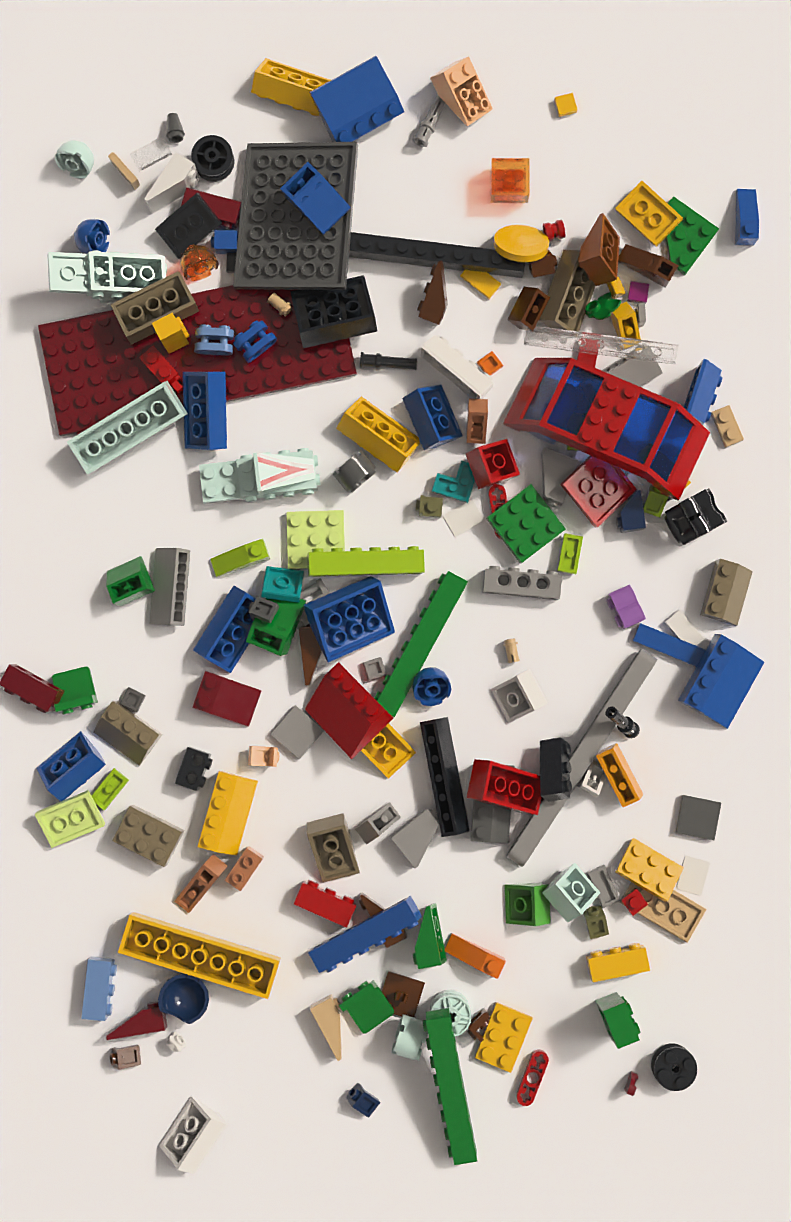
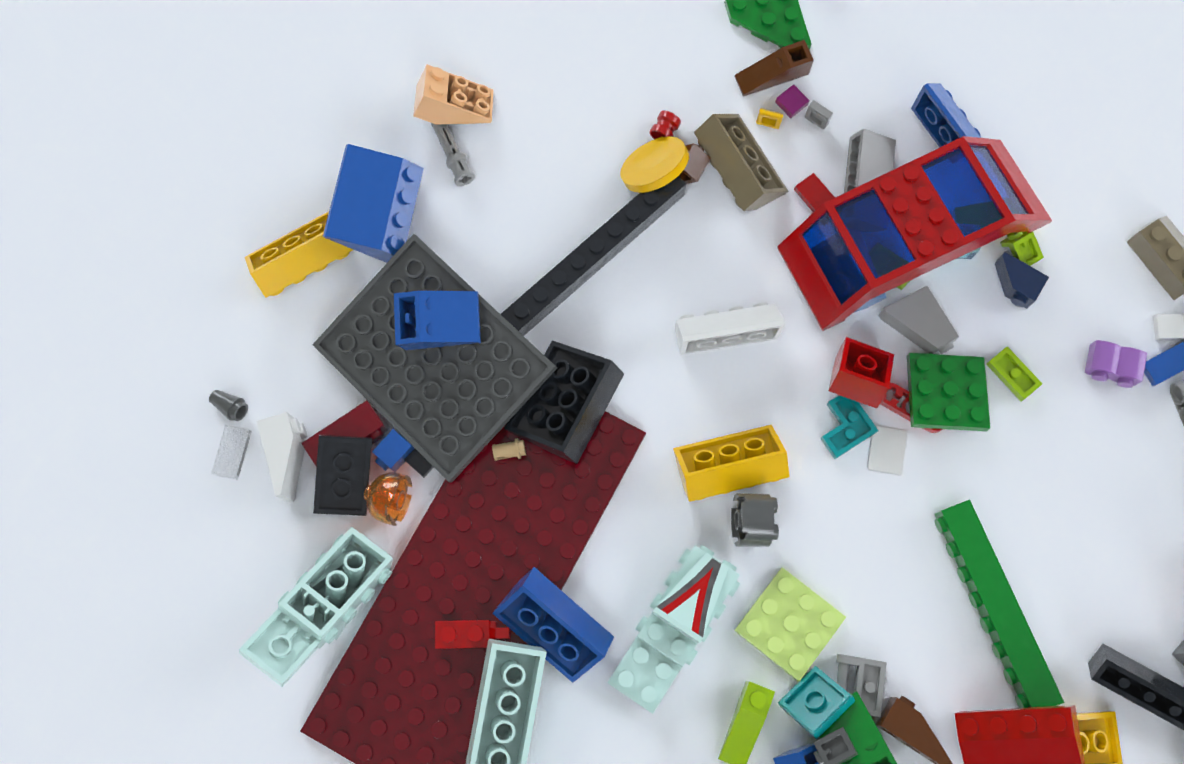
camera: 50 degrees left, 10 degrees down
(76, 158) = (163, 533): light aqua cylinder -> none
(92, 236) = (260, 588): blue cylinder -> none
(124, 170) = (230, 493): tan tile -> none
(151, 303) = (398, 584): dark tan slope -> none
(171, 332) = (443, 588): yellow brick -> none
(207, 333) = (488, 535): medium blue brick -> none
(217, 167) = (285, 380): black wheel -> none
(256, 330) = (515, 495): blue brick -> none
(350, 618) = (913, 659): blue slope -> none
(366, 562) = (863, 591): lime brick -> none
(374, 668) = (984, 678): light grey tile -> none
(378, 361) = (652, 400): black pin -> none
(429, 506) = (849, 474): olive bracket -> none
(431, 686) = (1057, 632): blue cylinder -> none
(432, 416) = (757, 394): blue slope -> none
(436, 299) = (641, 293): reddish brown slope -> none
(477, 421) = (803, 351): nougat brick -> none
(482, 282) = (656, 235): yellow tile -> none
(490, 363) = (747, 293): orange tile -> none
(509, 180) = (580, 126): clear orange brick -> none
(511, 649) = (1069, 512): tan pin -> none
(519, 696) = (1134, 548): white slope -> none
(528, 308) = (725, 210): reddish brown brick -> none
(552, 580) = (1040, 422): light grey brick -> none
(566, 104) = (550, 22): yellow tile -> none
(598, 489) = (970, 292): plate -> none
(600, 252) = (731, 101): dark orange slope -> none
(602, 307) = (782, 142): green plate -> none
(602, 345) = (822, 171): clear tile -> none
(625, 322) = (817, 135): yellow slope -> none
(649, 213) = (725, 30): yellow plate -> none
(694, 517) = (1079, 220): black piece -> none
(727, 426) = (997, 125): tan plate -> none

